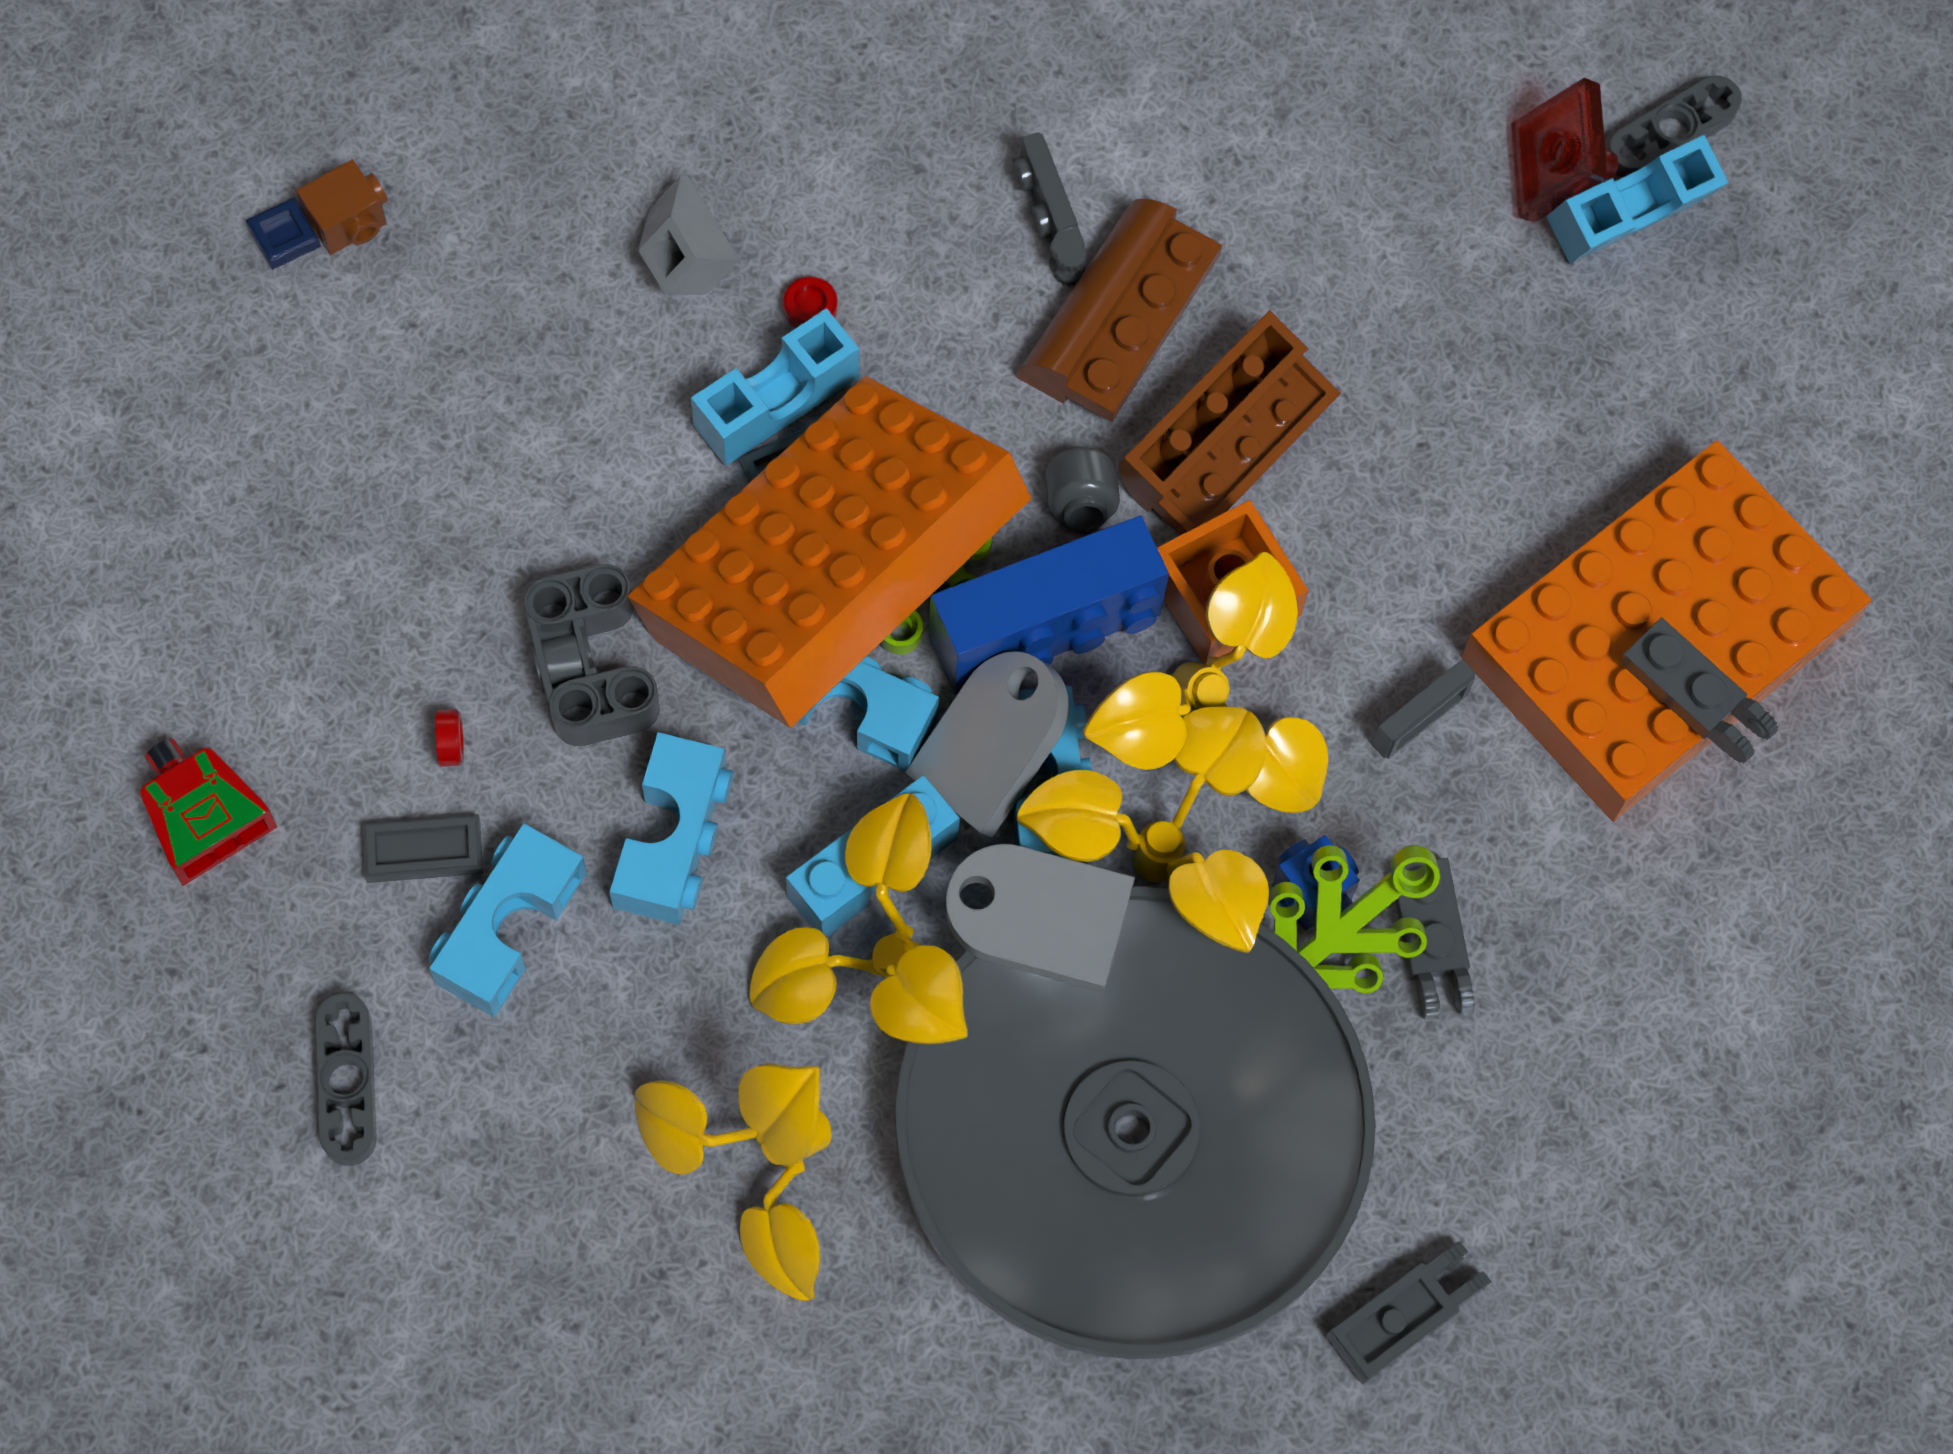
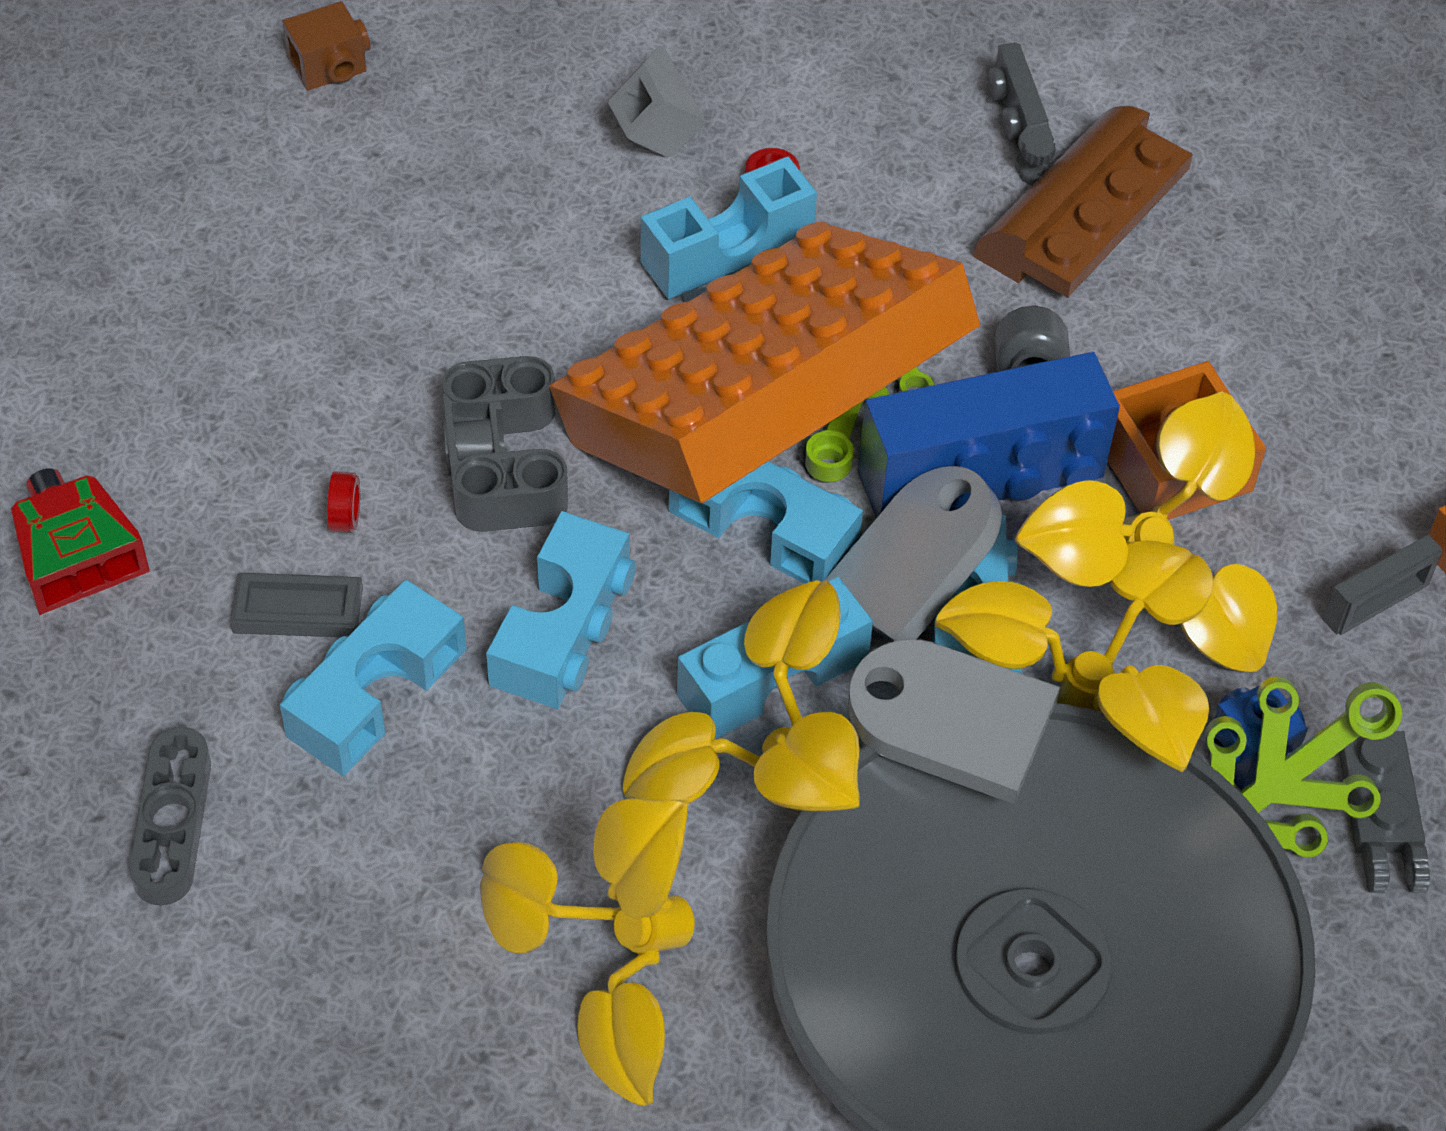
camera: 10 degrees right, 15 degrees down
(283, 233) = (264, 67): dark blue tile -> none
(1228, 428) = (1189, 303): dark orange brick -> none

